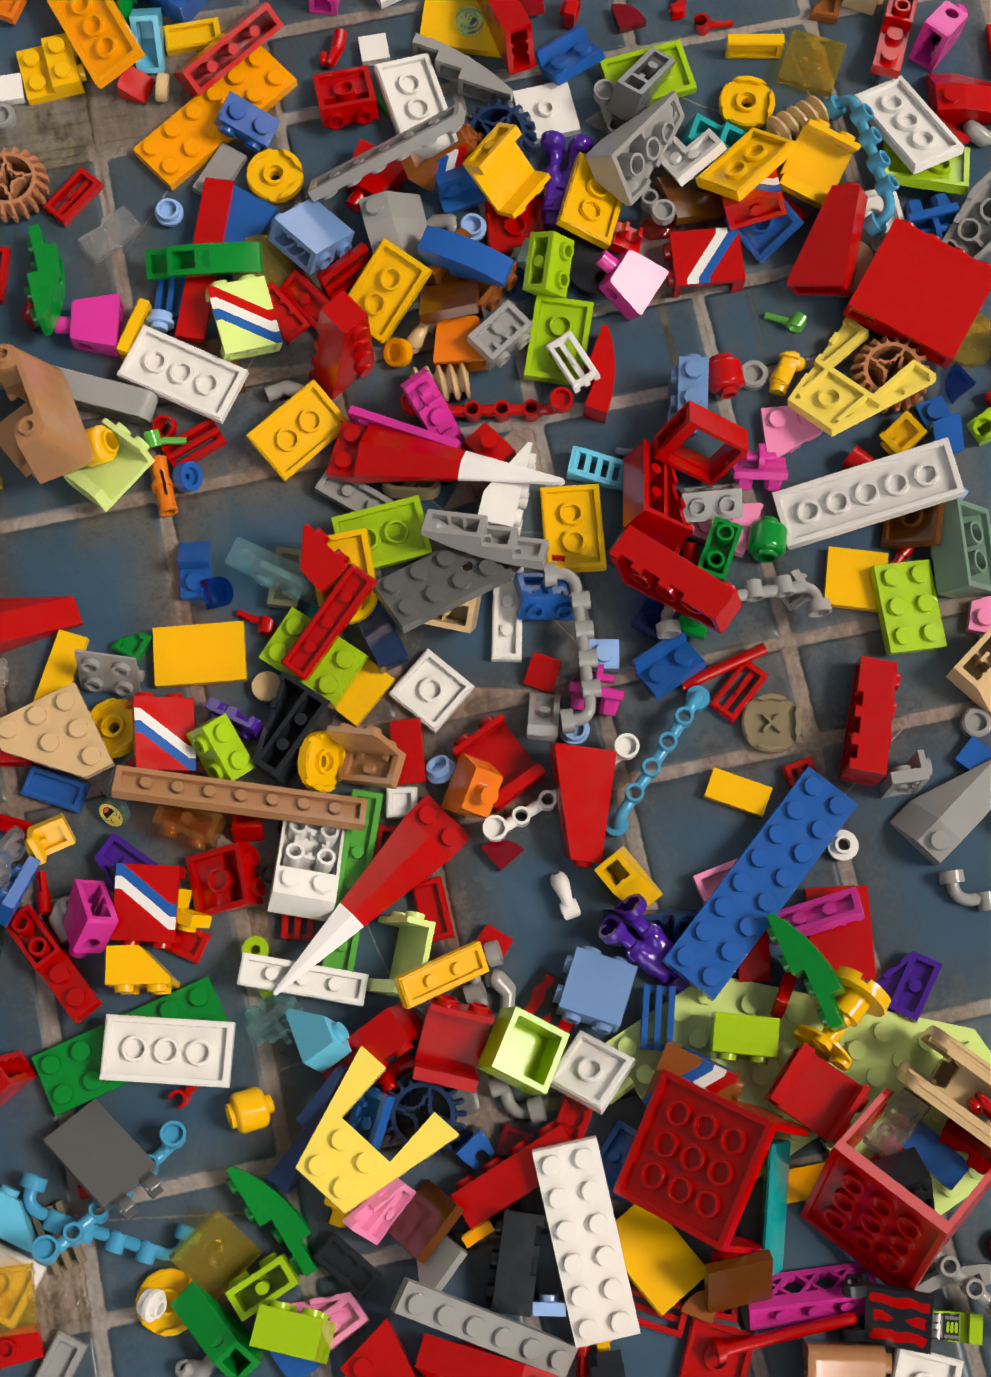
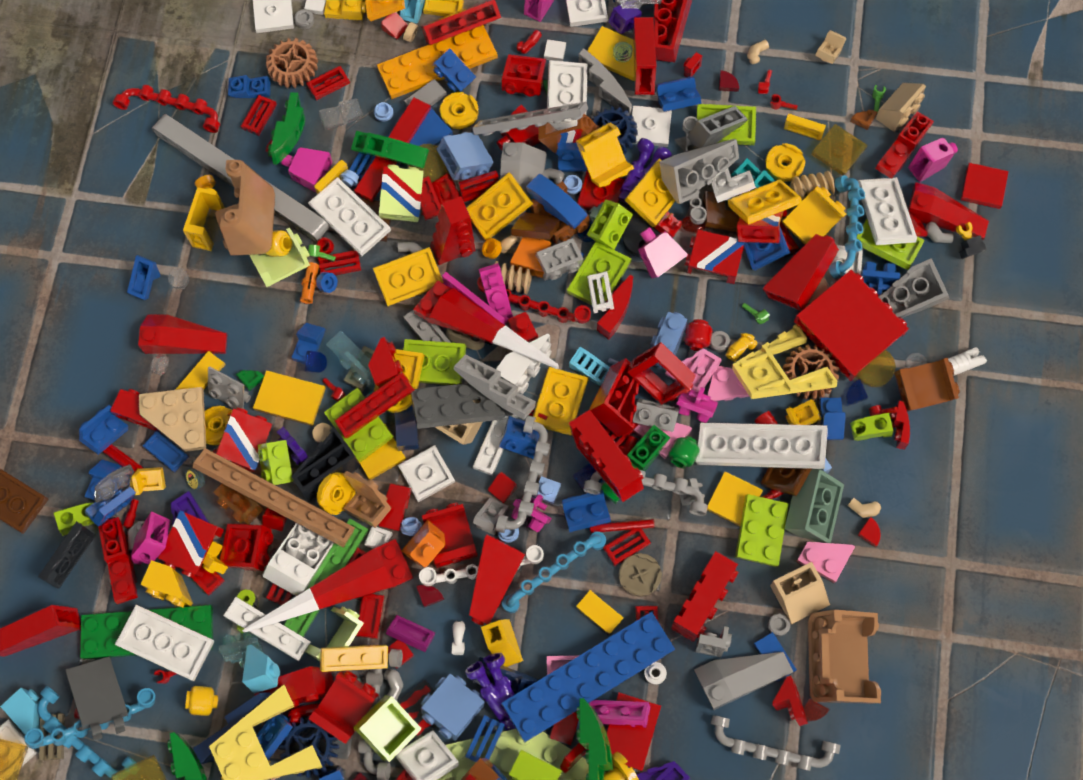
camera: 25 degrees right, 5 degrees down
(498, 913) = (410, 633): none -> magenta tile
(746, 411) = (703, 366): none -> bright pink wing

